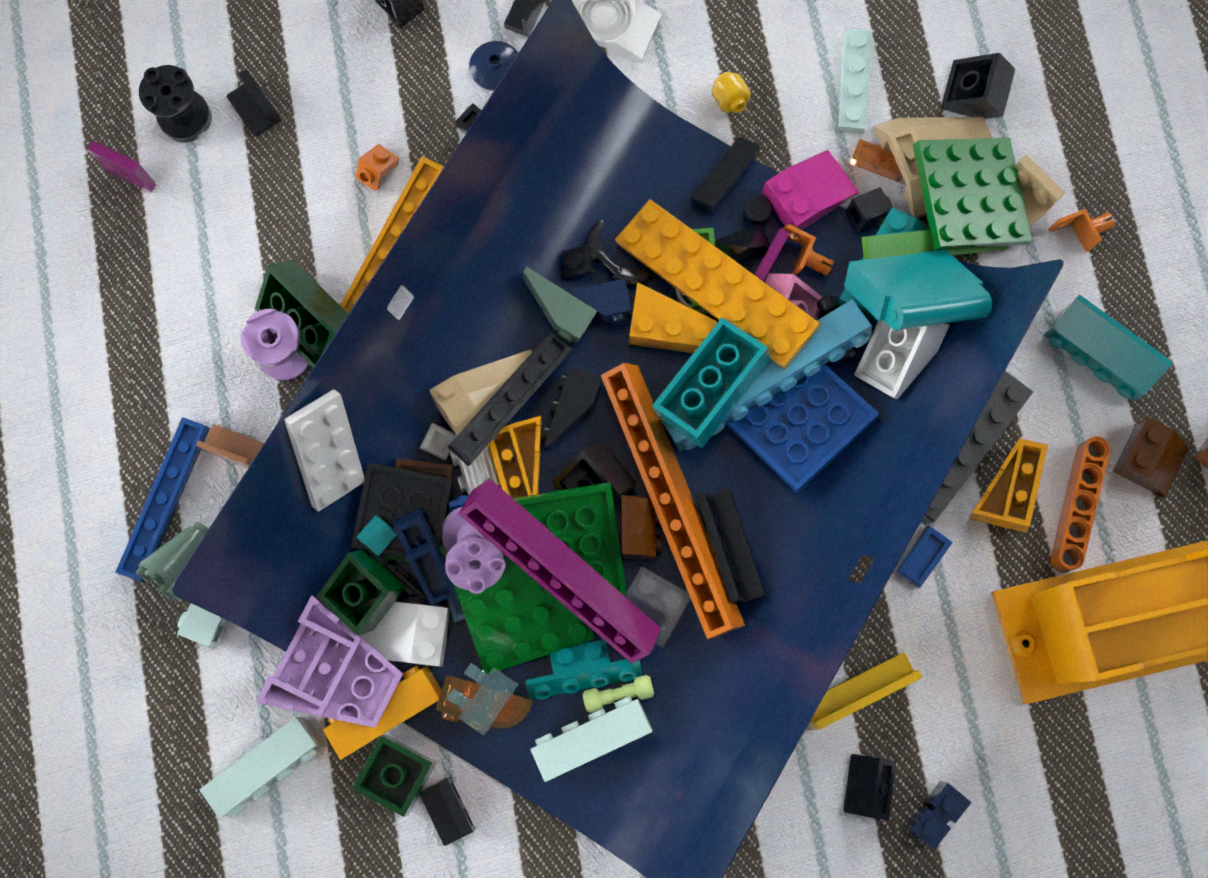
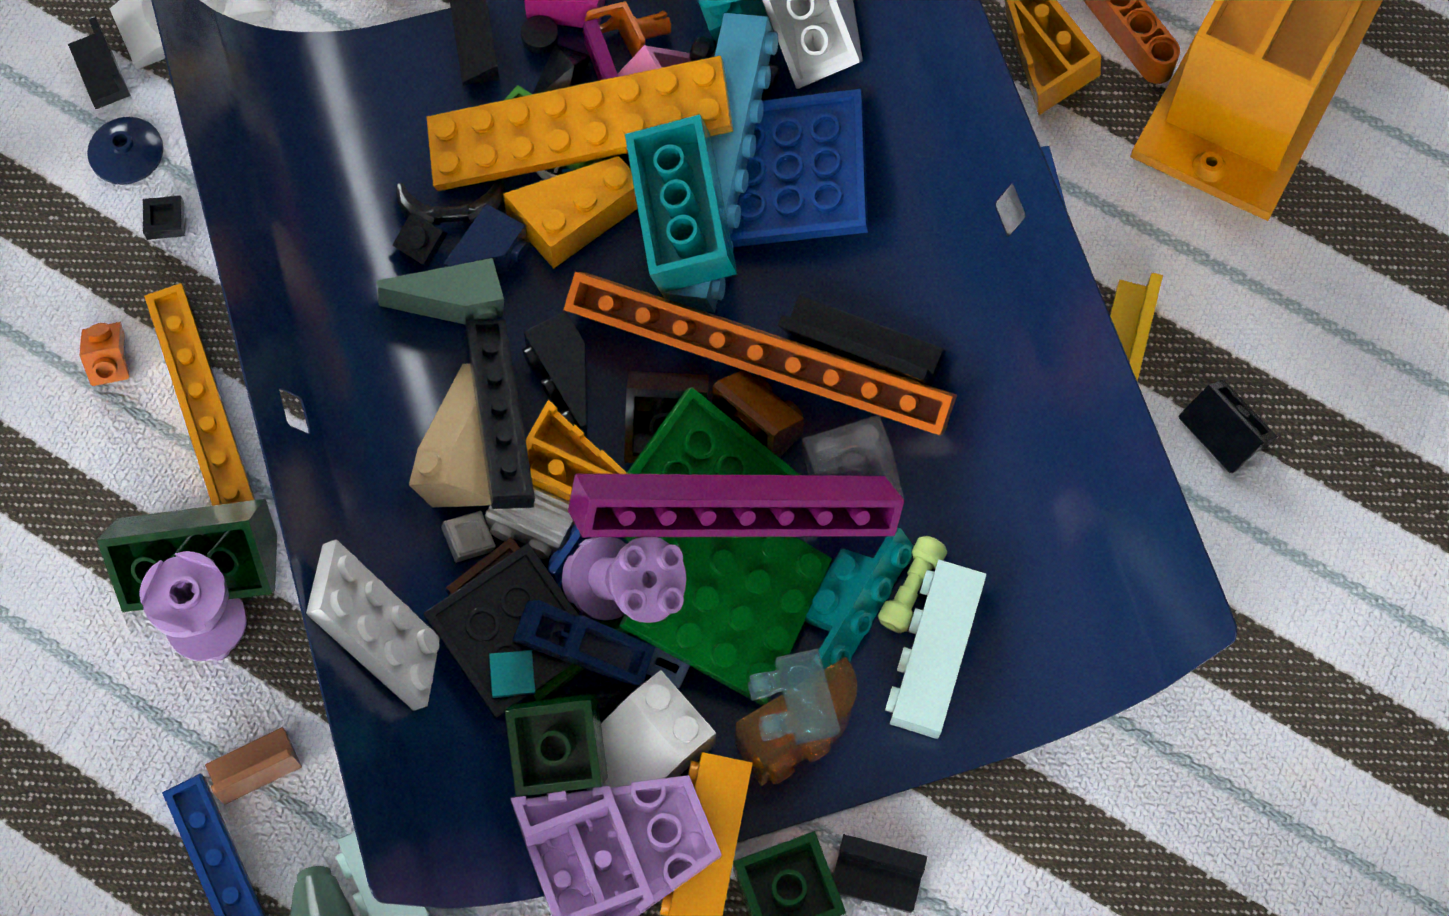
camera: 50 degrees left, 10 degrees down
(932, 825) = (1319, 397): dark blue piece -> none

